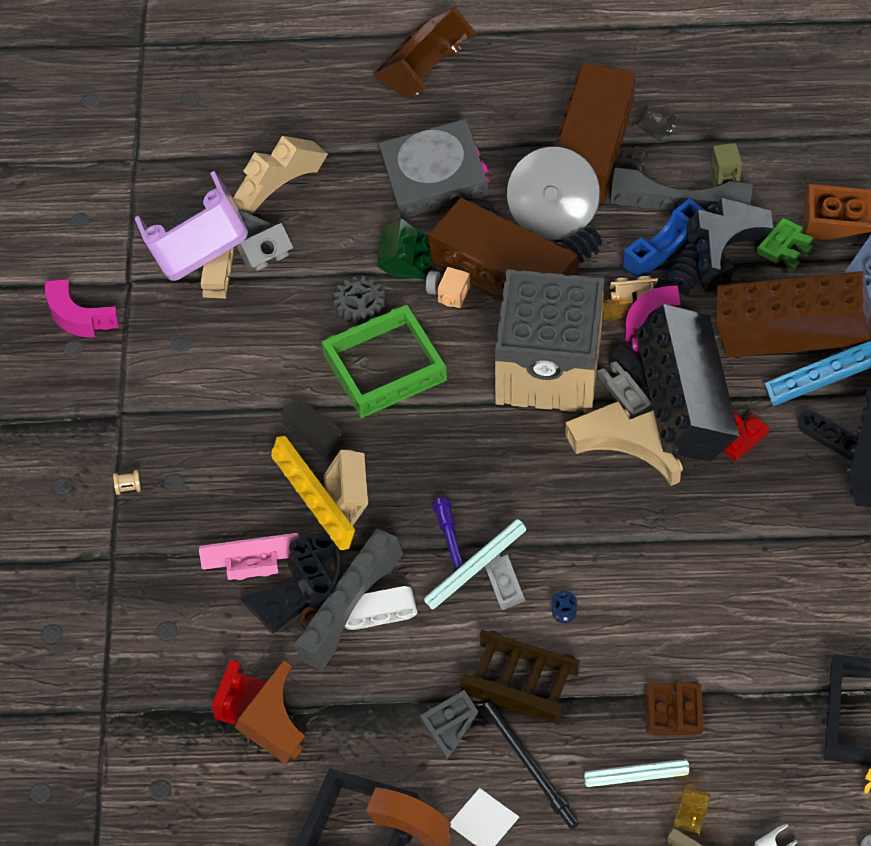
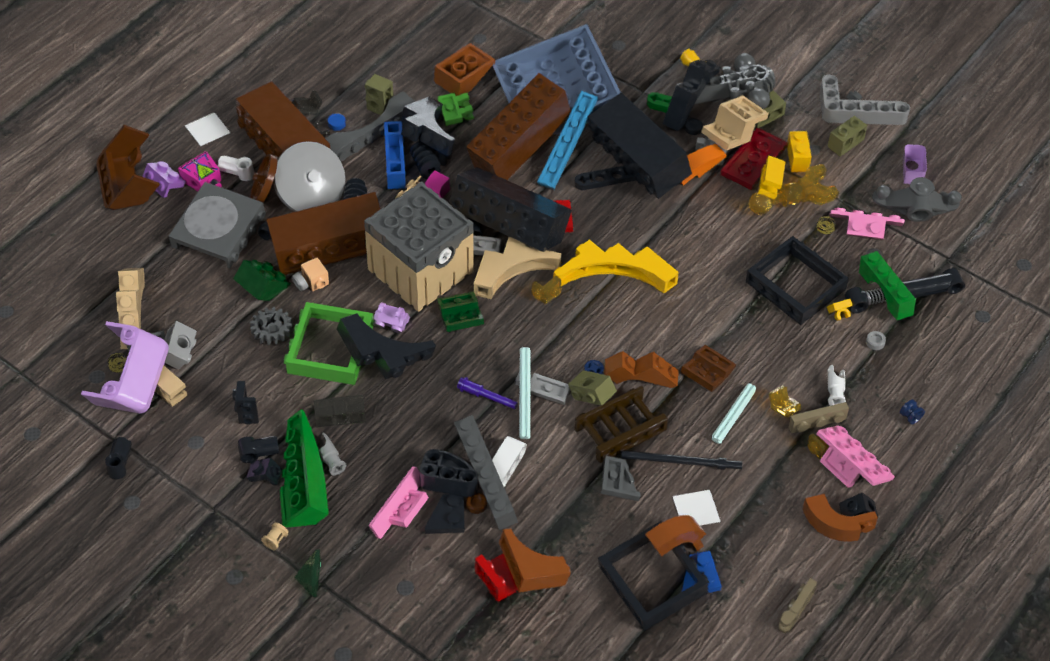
camera: 55 degrees left, 5 degrees down
(74, 318) = (107, 485): dark pink arch -> none
(108, 297) = (118, 458): none -> black piece
(112, 542) = (309, 573): none -> clear green slope
(192, 421) = (263, 470): none -> black bracket
(198, 467) = (304, 487): none -> green wedge
(207, 392) = (253, 448): none -> black piece
(243, 345) = (245, 406): none -> black bracket
(255, 457) = (330, 455): none -> light grey piece
(313, 493) = (392, 438): yellow plate -> none
(347, 483) = (416, 408): tan window -> none
(409, 418) = (370, 346): none -> black arch
(450, 86) = (164, 175): none -> medium lavender bracket
(464, 390) = (392, 317): none -> lavender piece
(485, 110) = (200, 170): none -> dark pink torso
(513, 158) = (264, 178): none -> reddish brown piece
(521, 130) = (241, 167): none -> white piece
(530, 438) = (460, 311): none -> dark green slope
(533, 618) = (592, 387): none -> olive brick
(548, 74) = (207, 129): none -> white sticker
(608, 649) = (648, 368): none -> dark orange arch
(629, 494) = (548, 291): none -> clear yellow bracket
(664, 163) = (336, 122): none -> blue tile
(728, 524) = (617, 260): none -> yellow arch

